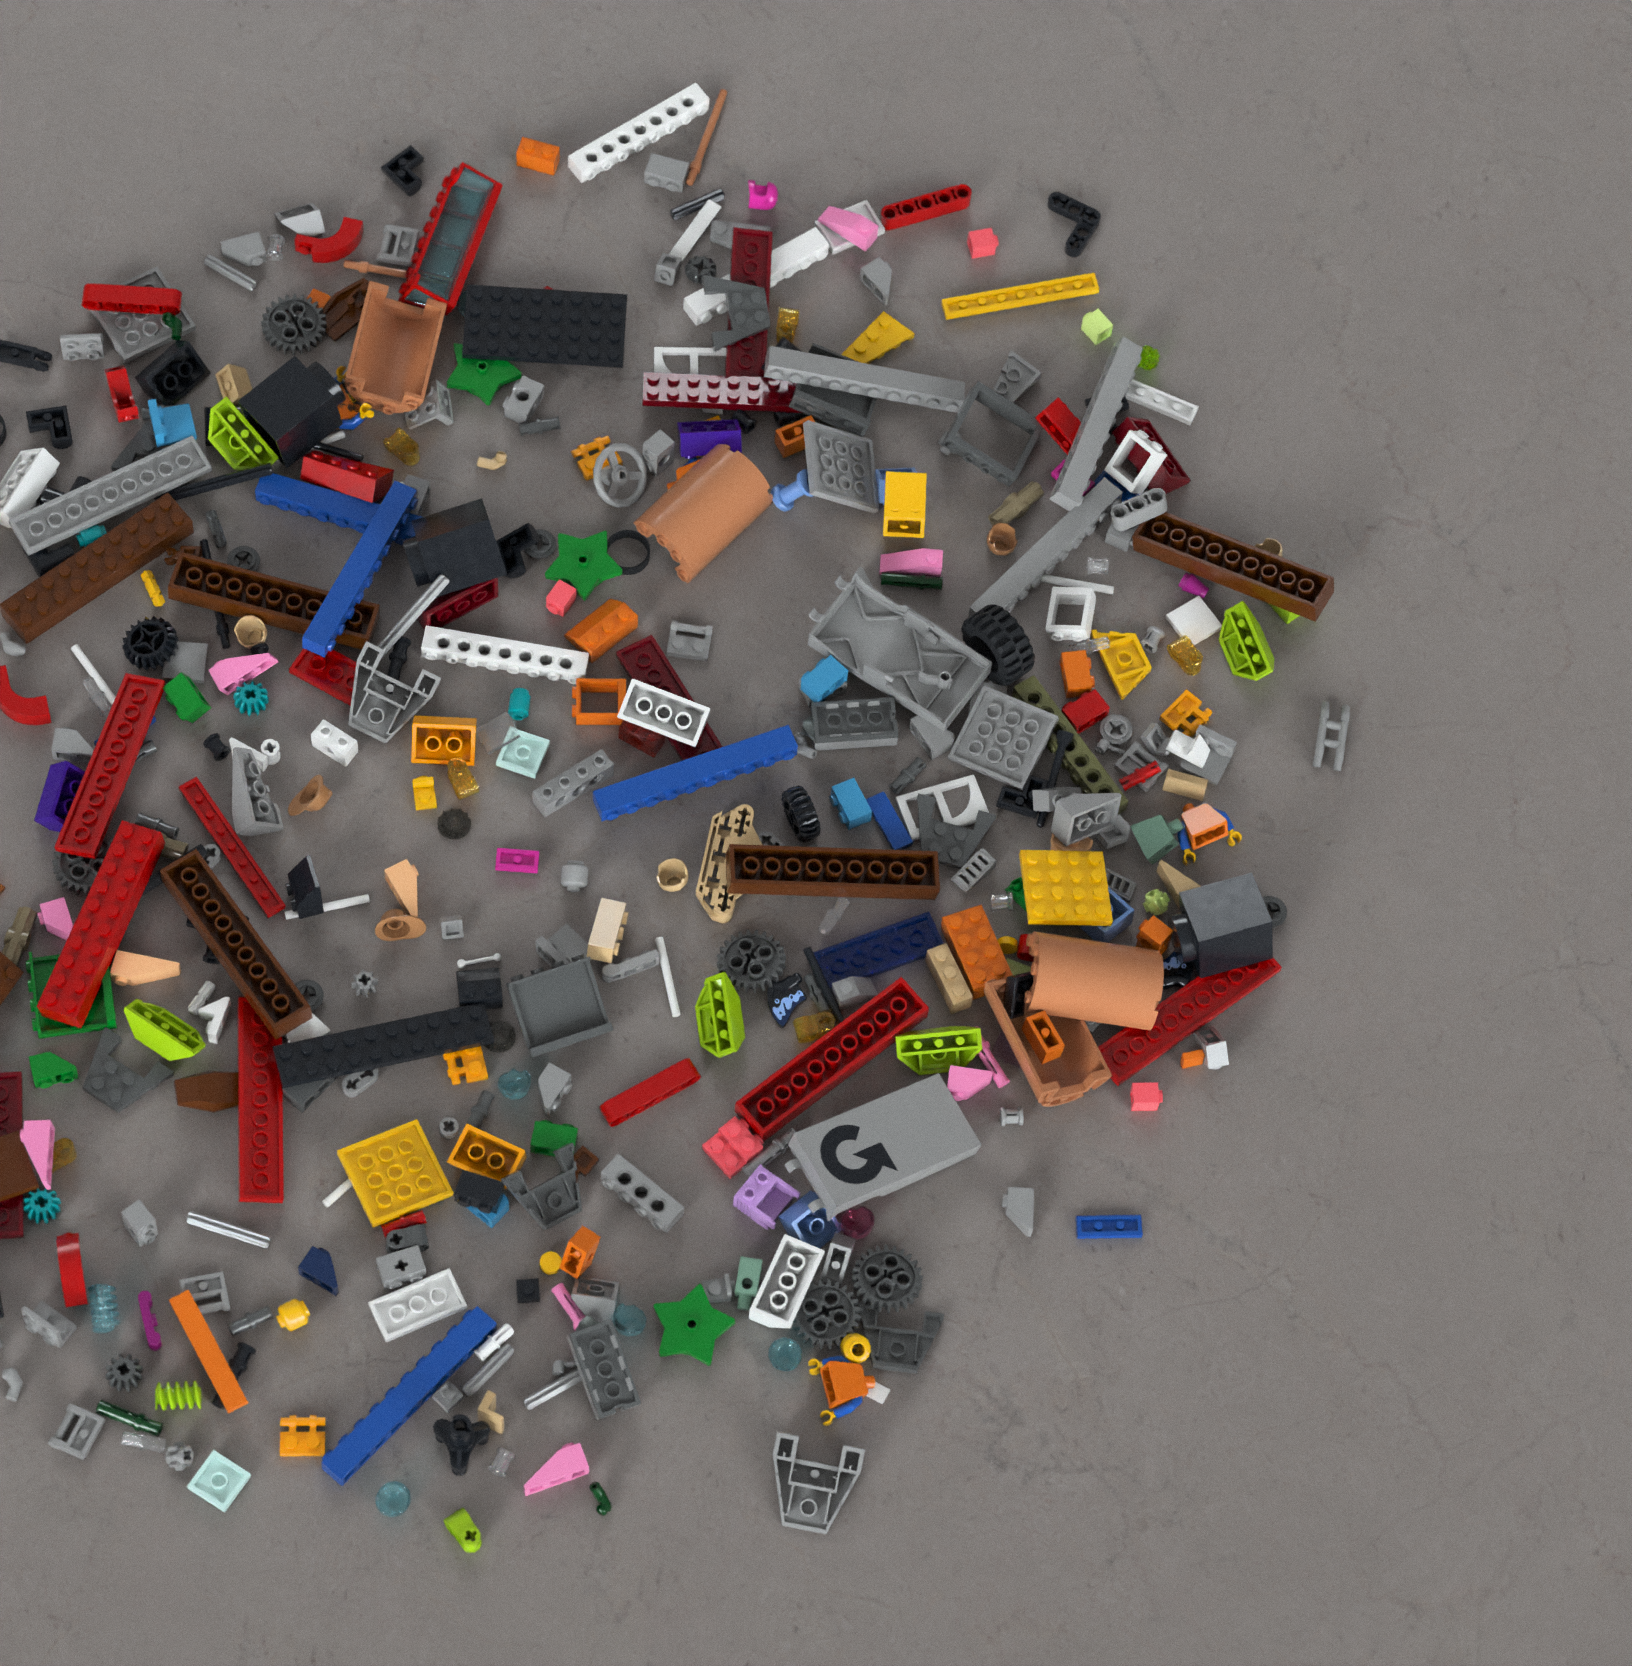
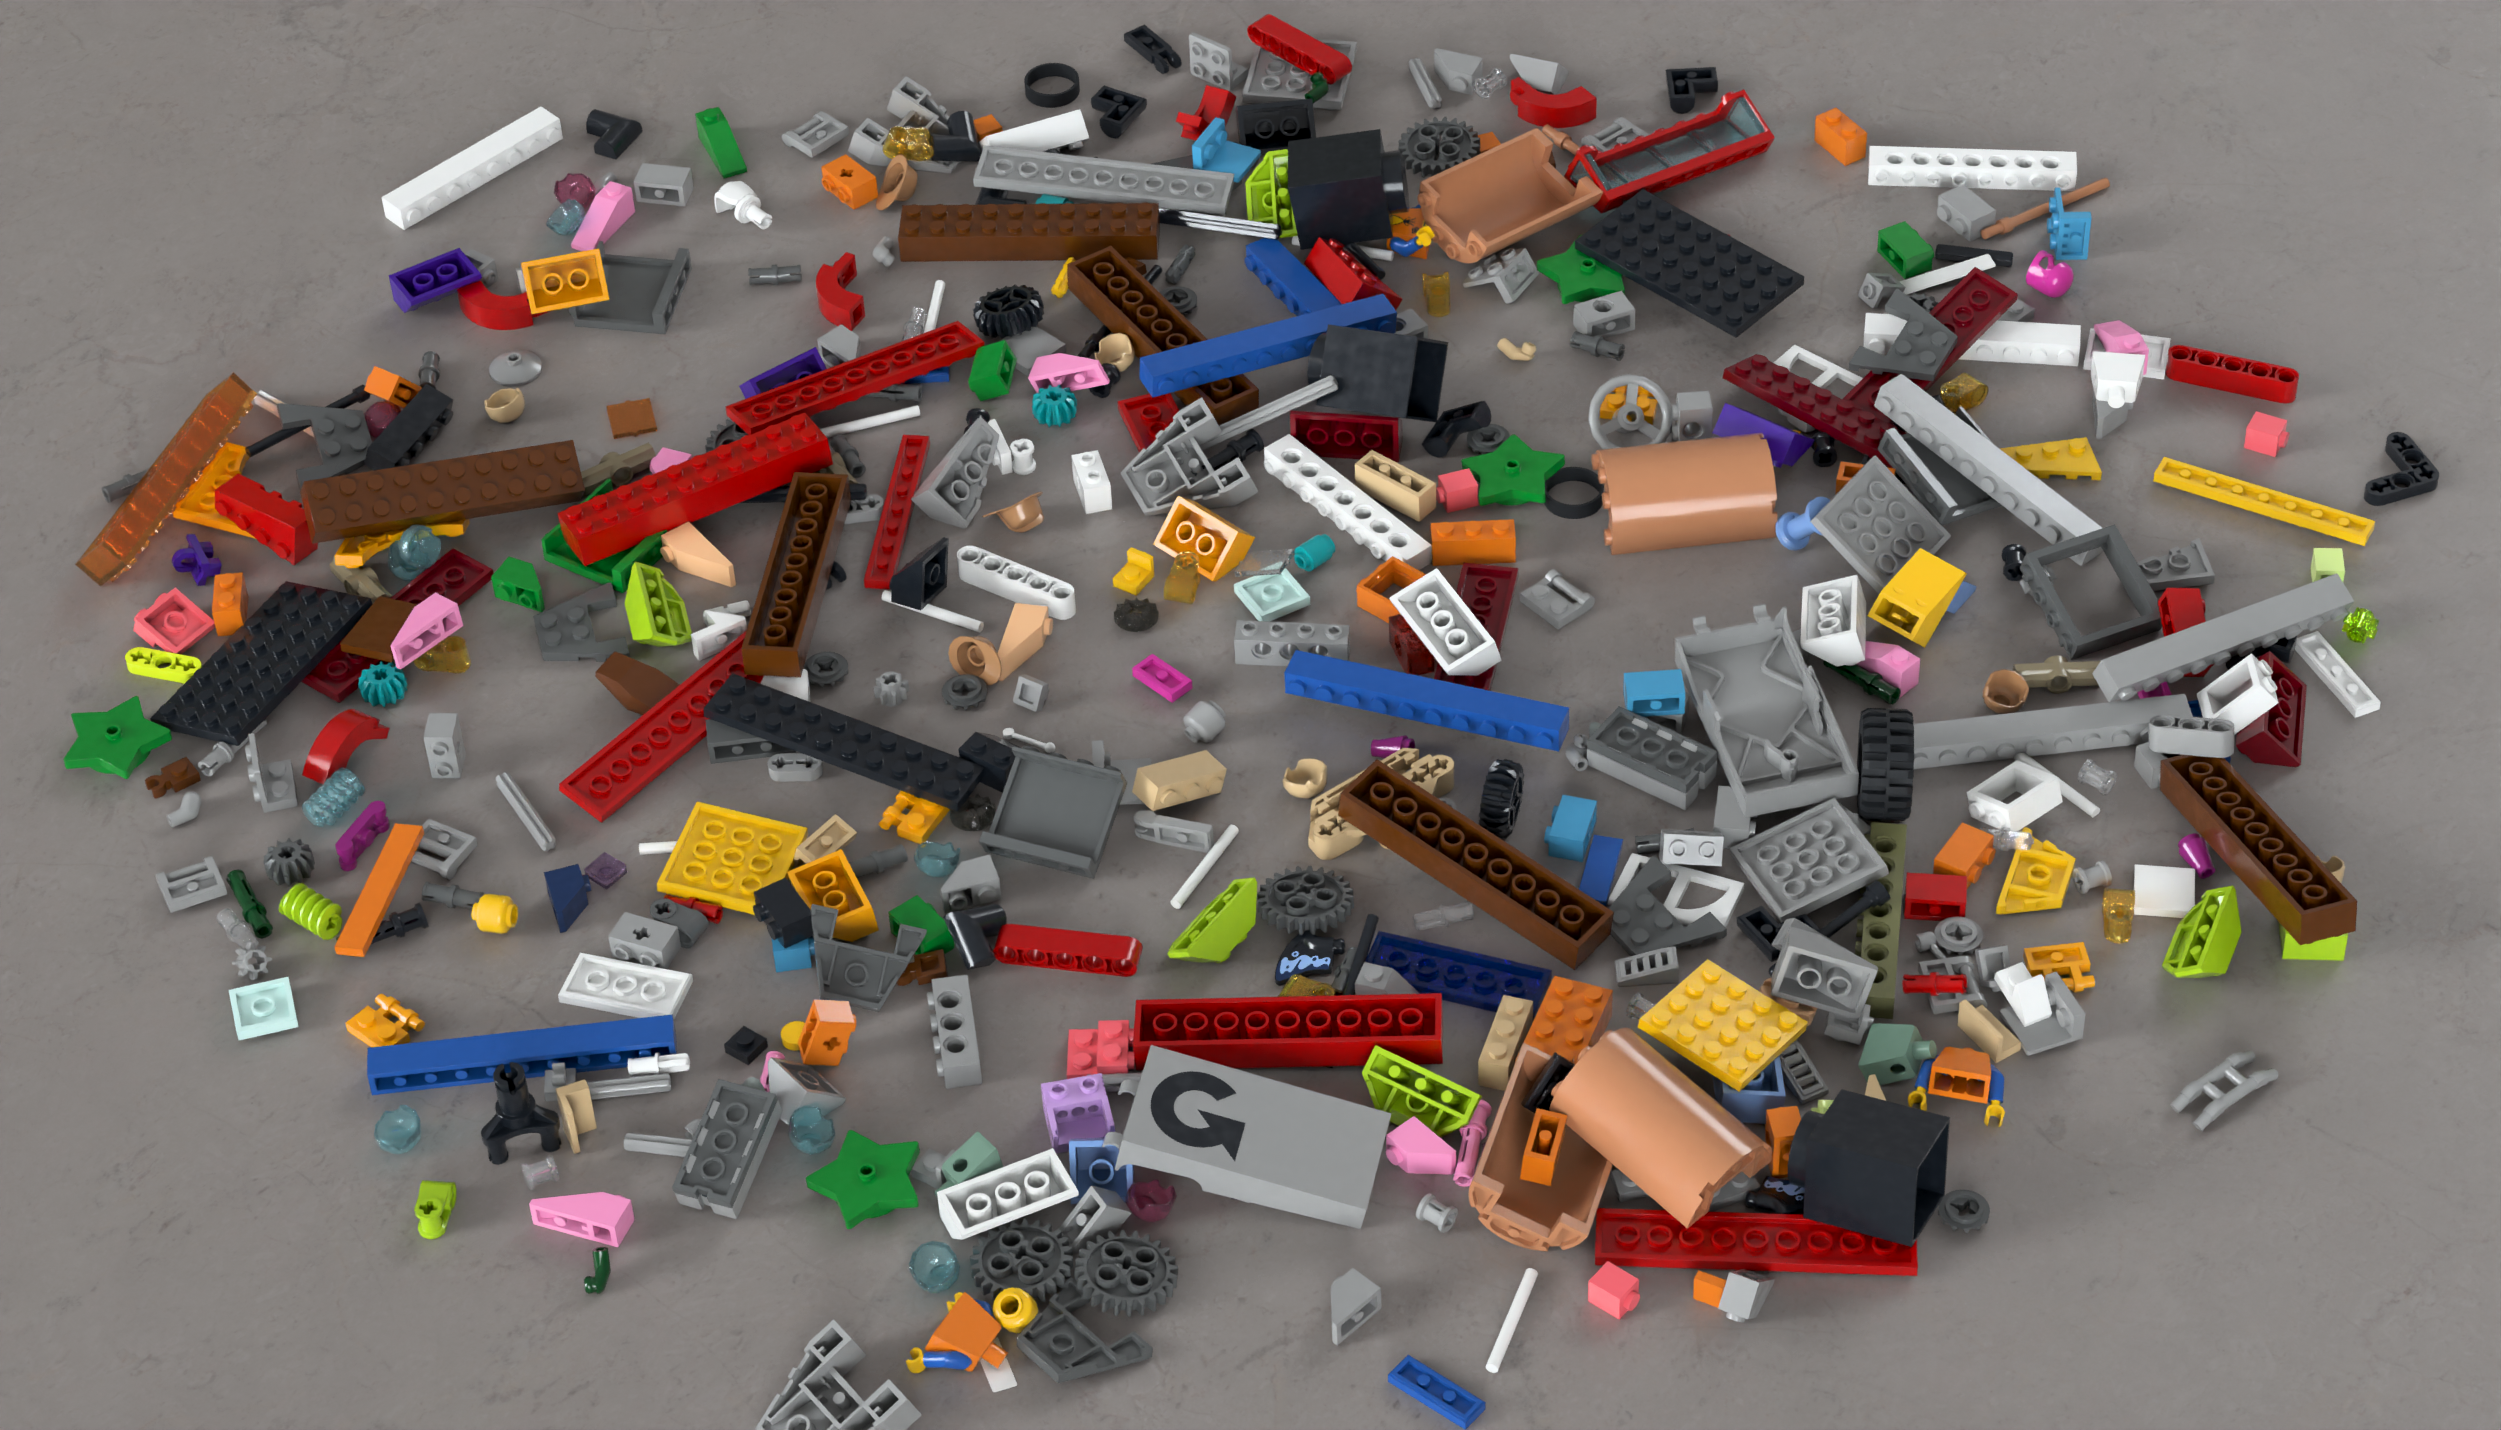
camera: 50 degrees right, 20 degrees down
(139, 790) = (872, 421): none -> white bar
(324, 1235) = (605, 870): none -> clear purple plate
(372, 853) = (1015, 581): none -> white beam
(407, 944) = (954, 687): none -> dark grey gear
(440, 1123) = (829, 838): none -> tan panel
(525, 621) = (1395, 485): none -> tan brick
(588, 1123) = (970, 933): none -> black brick
(656, 227) = (1905, 250): none -> green brick
(699, 817) = (1388, 746): none -> magenta cone
(742, 156) = (2068, 229): none -> dark azure bracket
(871, 553) = (1834, 621): none -> white slope
(877, 259) = (2116, 377): none -> white torso
(924, 436) = (2013, 558): none -> black bush
(931, 773) = (1691, 847): none -> brick
(1106, 1153) = (1511, 1320): none -> white bar

